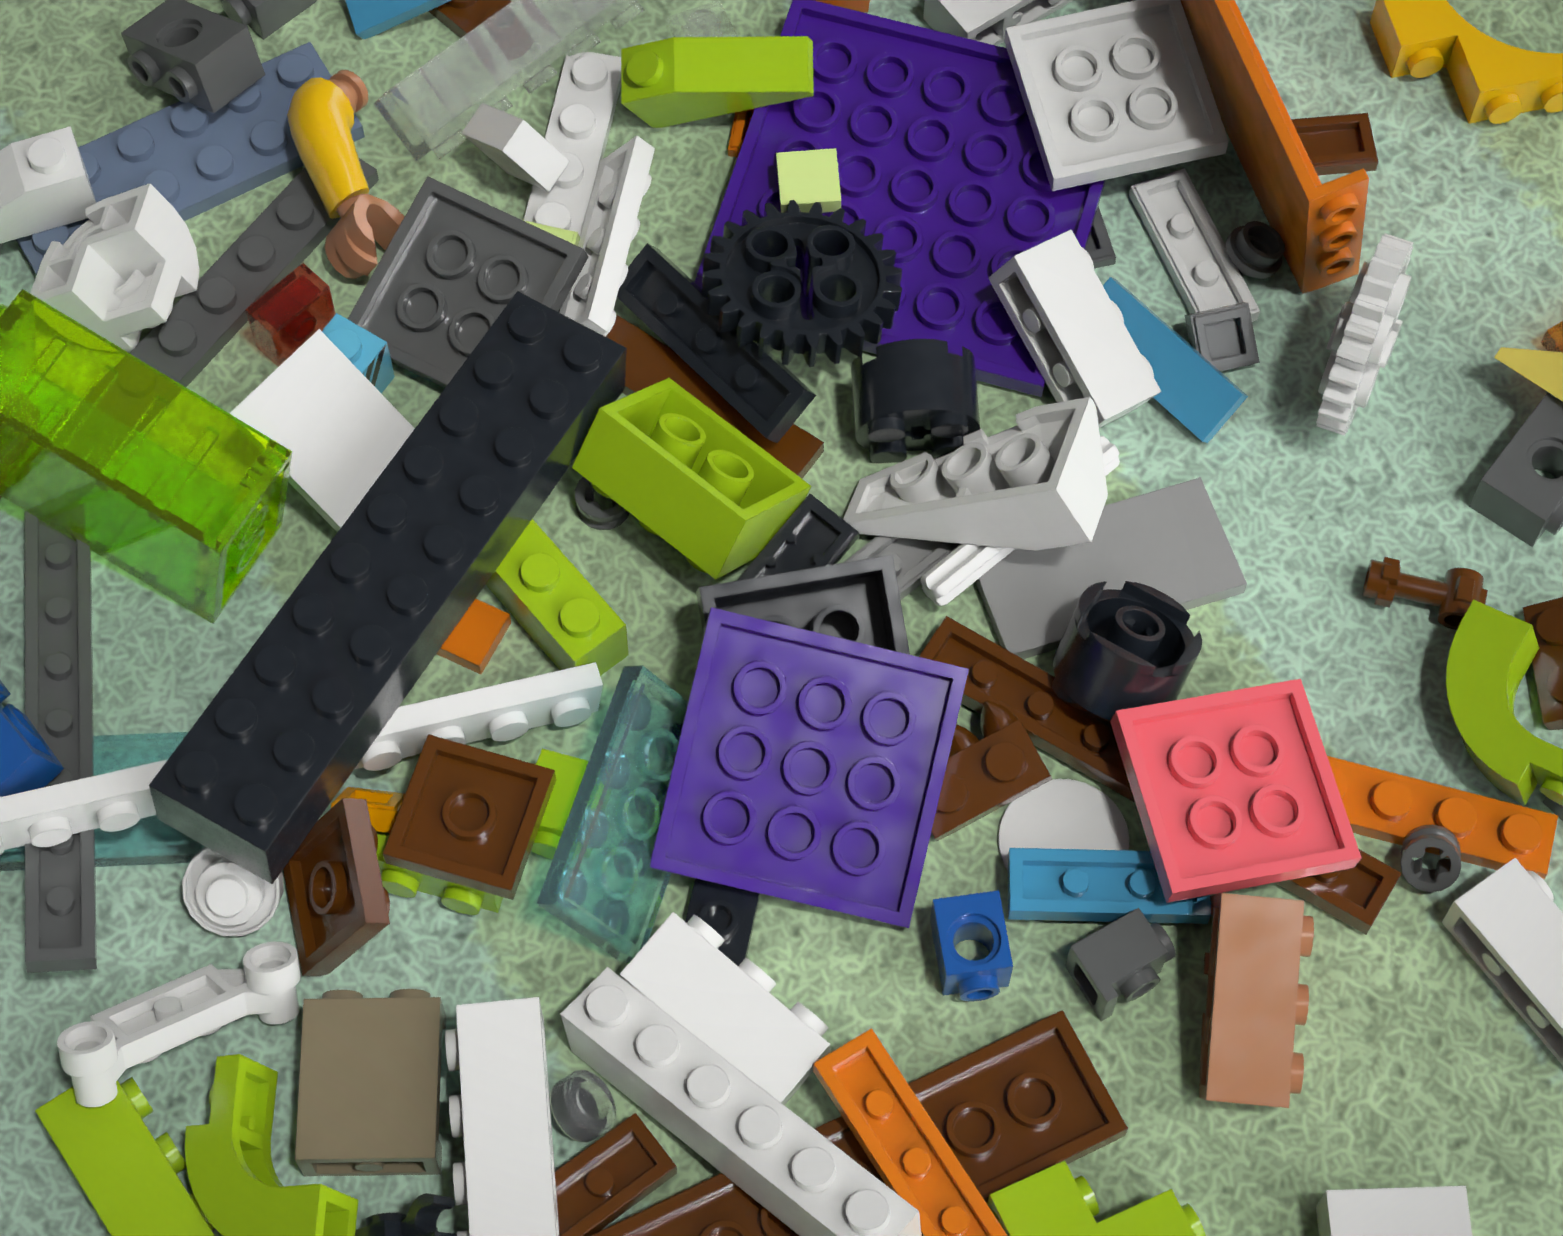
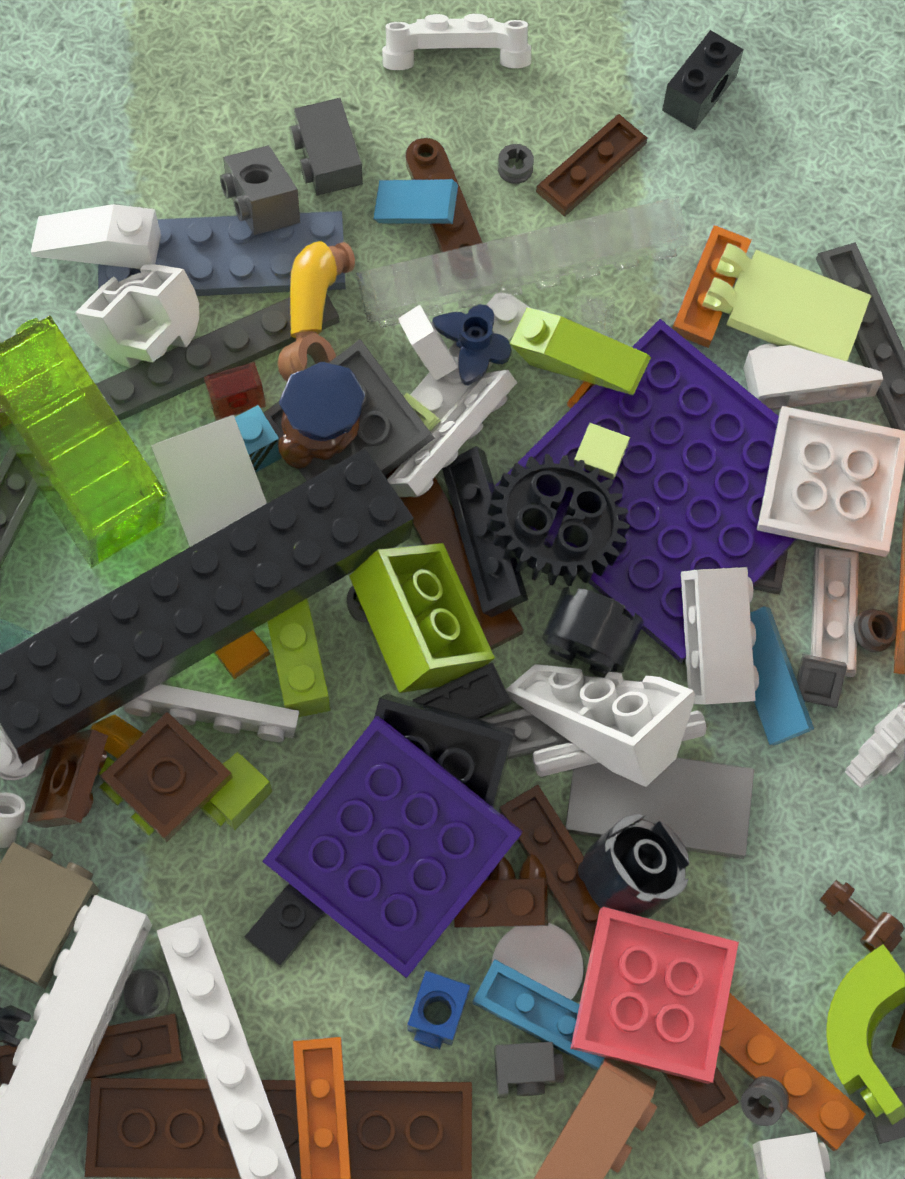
camera: 25 degrees right, 5 degrees up
(427, 285) = (319, 413): none -> dark blue piece
(576, 121) = (475, 339): none -> dark blue animal
(602, 860) = (233, 844): clear light blue plate -> none
(728, 1005) = (263, 977): white brick -> none

